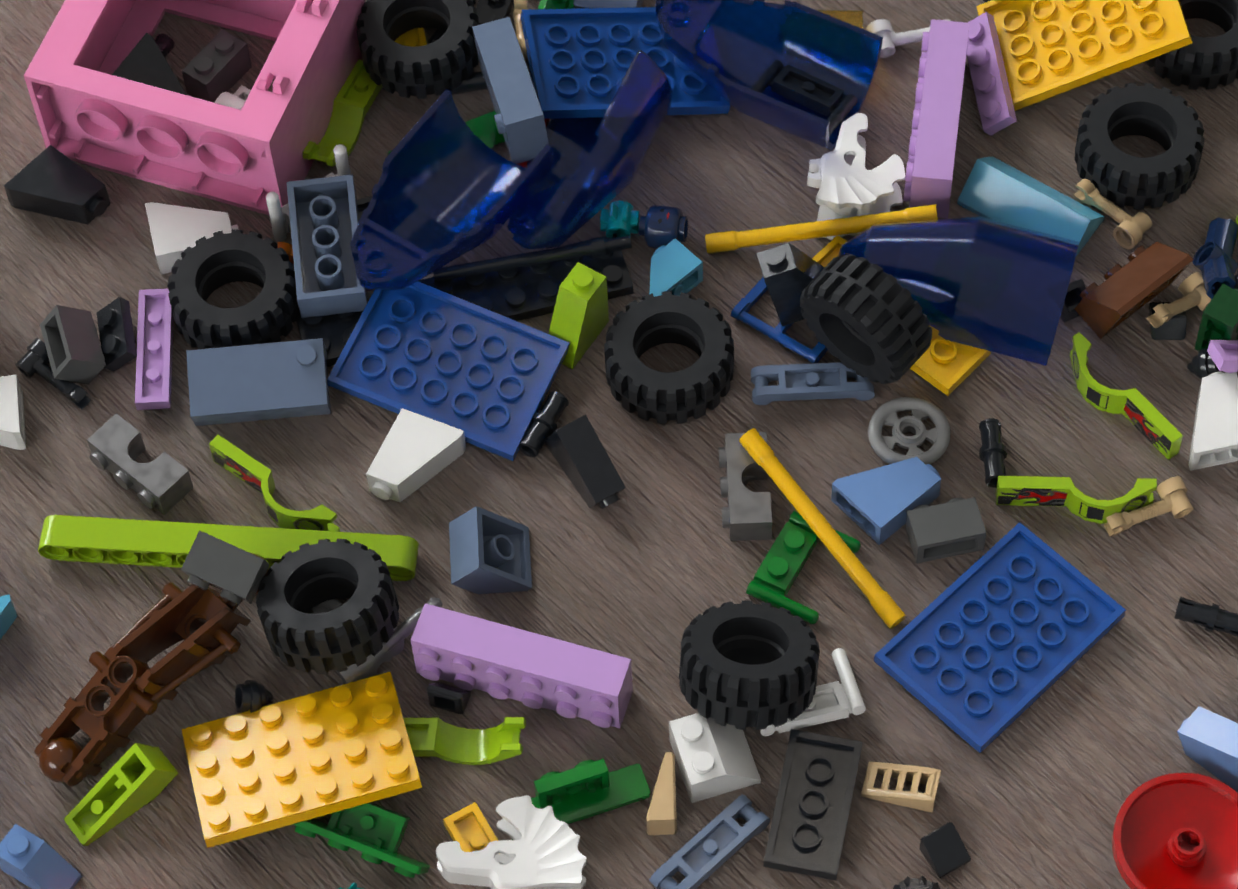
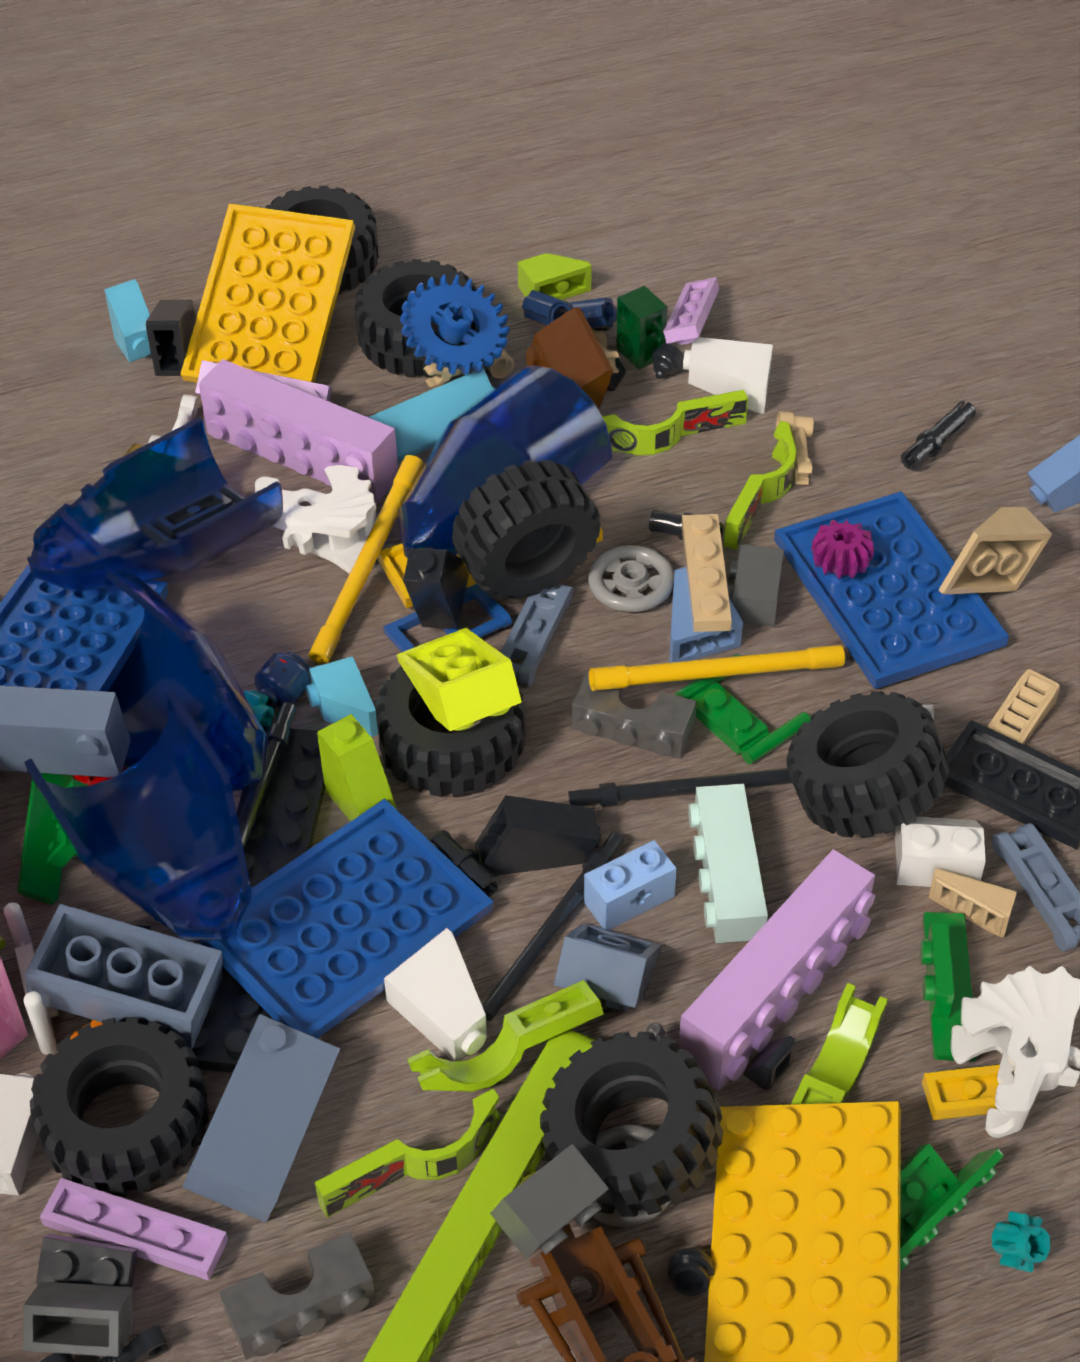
camera: 70 degrees left, 10 degrees down
(399, 518) = (519, 1032): none -> lime piece
(567, 542) = (629, 885): none -> light blue brick
(582, 515) = (549, 928): none -> black bar
(621, 602) = (729, 863): none -> light aqua brick
(662, 501) = (609, 794): none -> black bar
(682, 335) = (461, 678): none -> neon yellow slope
(920, 479) = (706, 573): none -> tan plate
(1011, 566) = (842, 549): none -> magenta gear
(1058, 700) = (998, 553): none -> tan slope
(1110, 204) = (454, 325): none -> blue gear

